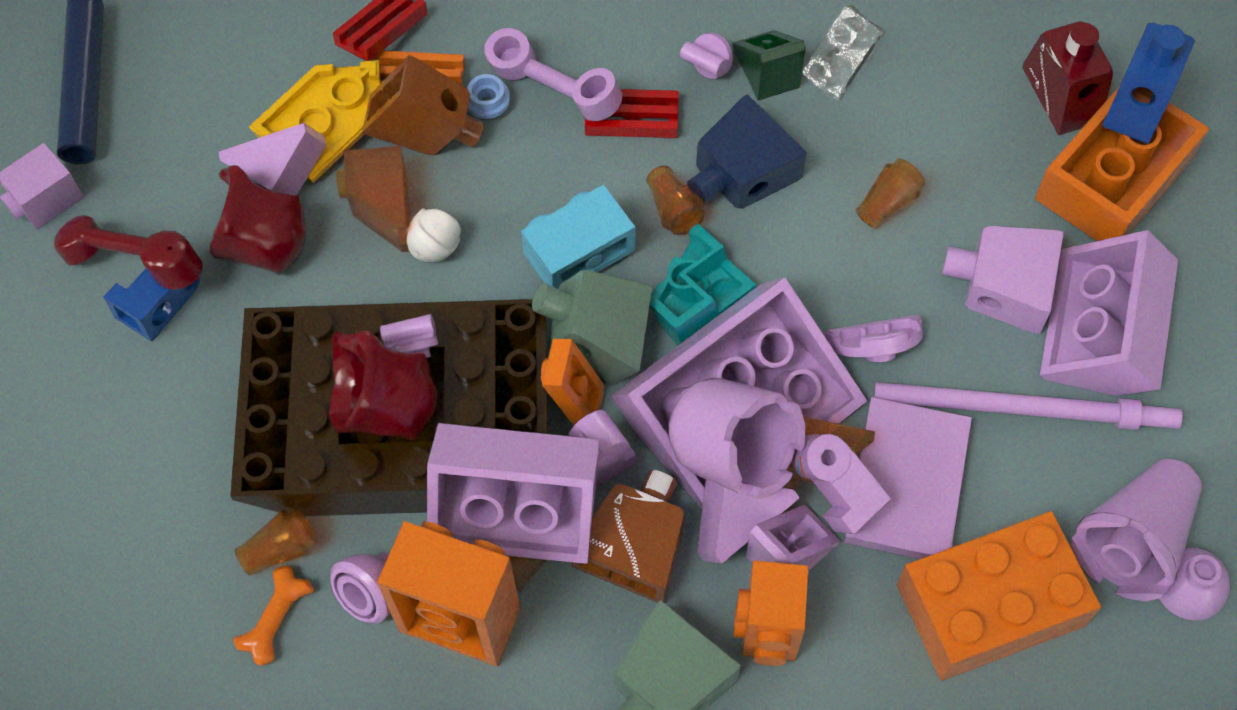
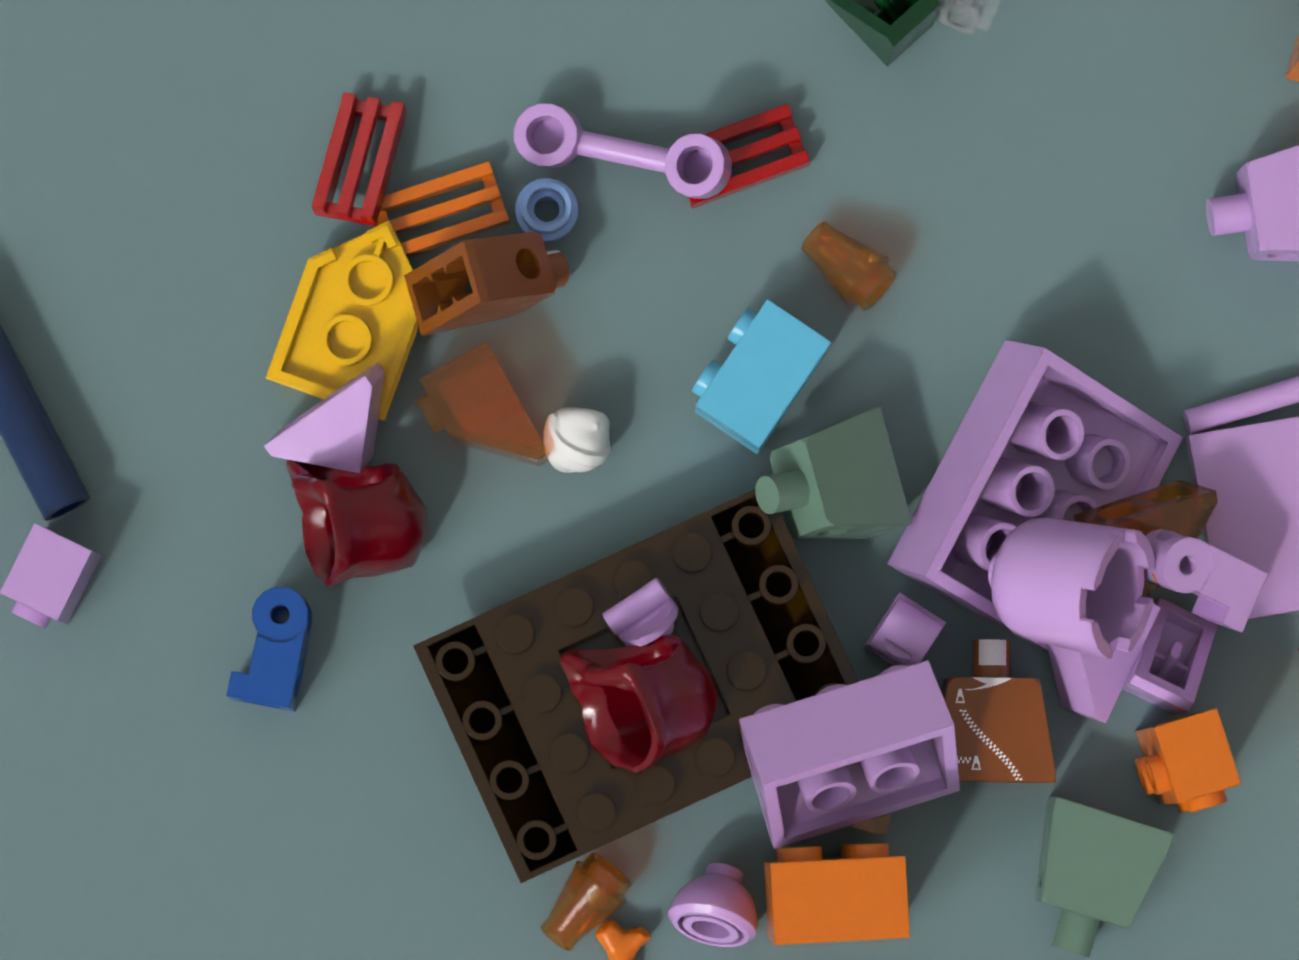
camera: 25 degrees left, 20 degrees up
(164, 253) = (146, 624): dark red piece -> none
(571, 380) = (844, 578): orange plate -> none
(697, 287) = (929, 372): teal slope -> none
(709, 54) = (805, 35): lavender plate -> none
(746, 157) = (912, 171): dark blue torso -> none
(877, 340) = (1167, 356): lavender plate -> none
(892, 190) = (1109, 146): clear orange cone -> none

